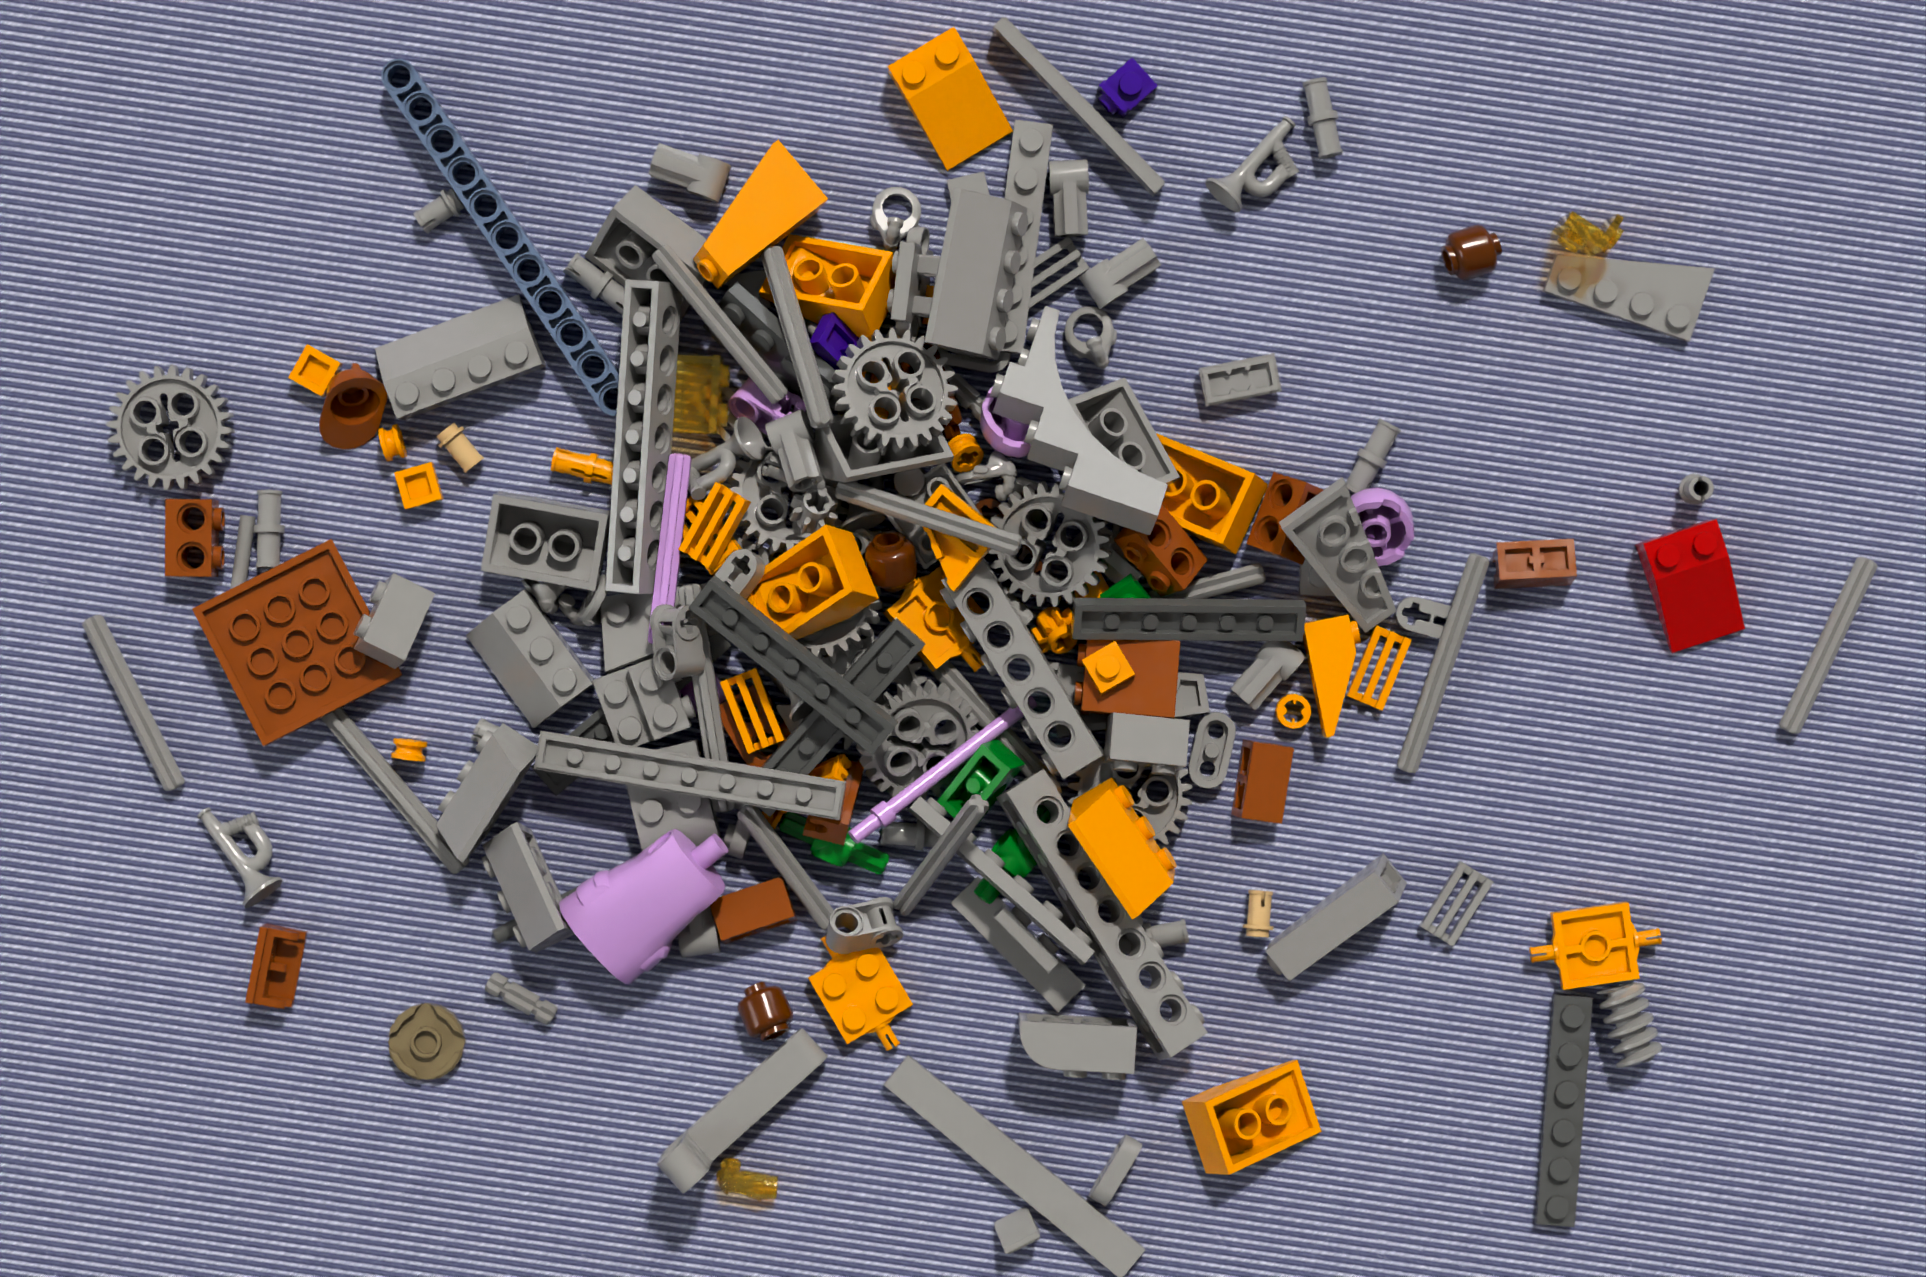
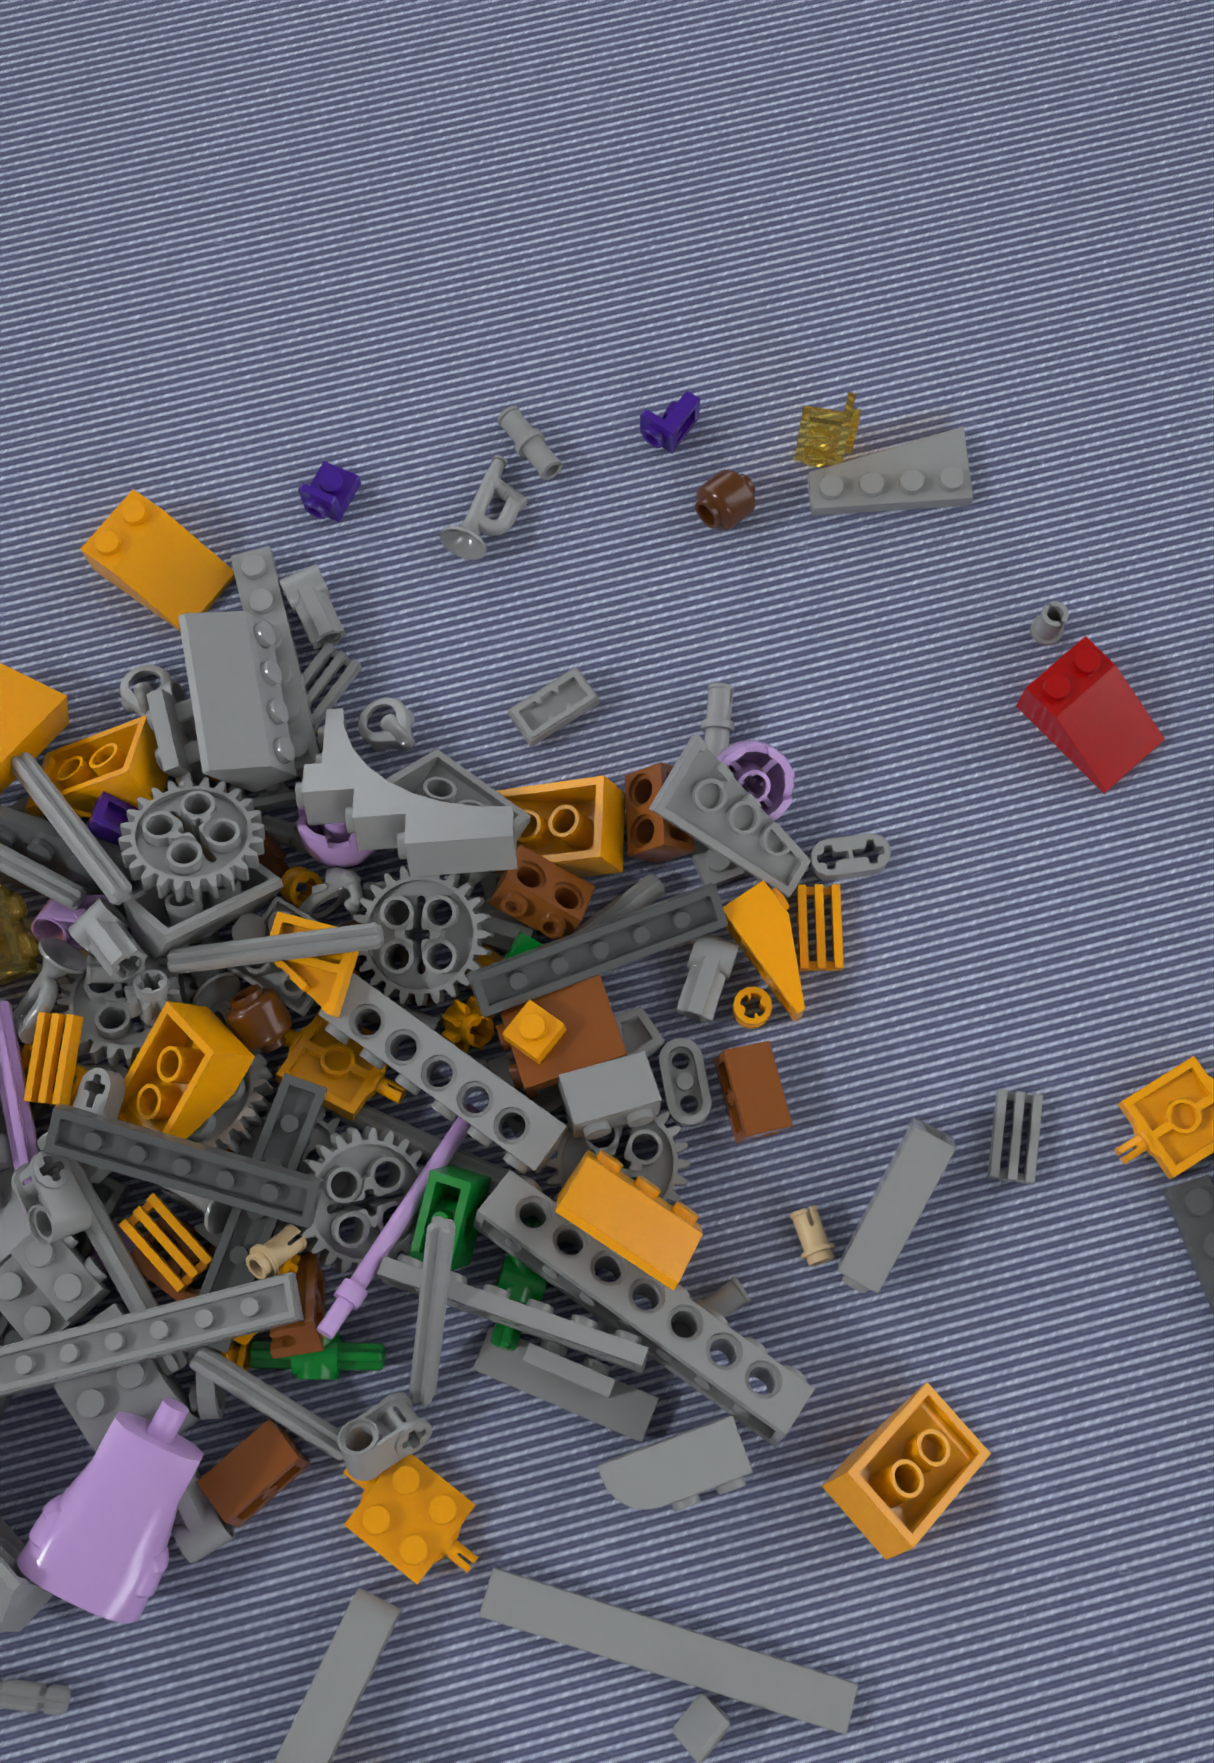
camera: 20 degrees left, 15 degrees down
(765, 1011) = (309, 1587): reddish brown head -> none
(829, 760) = (267, 1258): none -> tan pin
(908, 834) = (392, 1312): light grey pin -> none
(1078, 106) = (289, 521): light grey tile -> none
(1112, 277) = (386, 663): light grey piece -> none
(1115, 1170) = (782, 1602): light grey beam -> none
(1443, 663) = (883, 893): light grey axle -> none
(1463, 154) = (673, 426): none -> dark purple bracket
(1534, 563) = (927, 758): dark orange hinge -> none

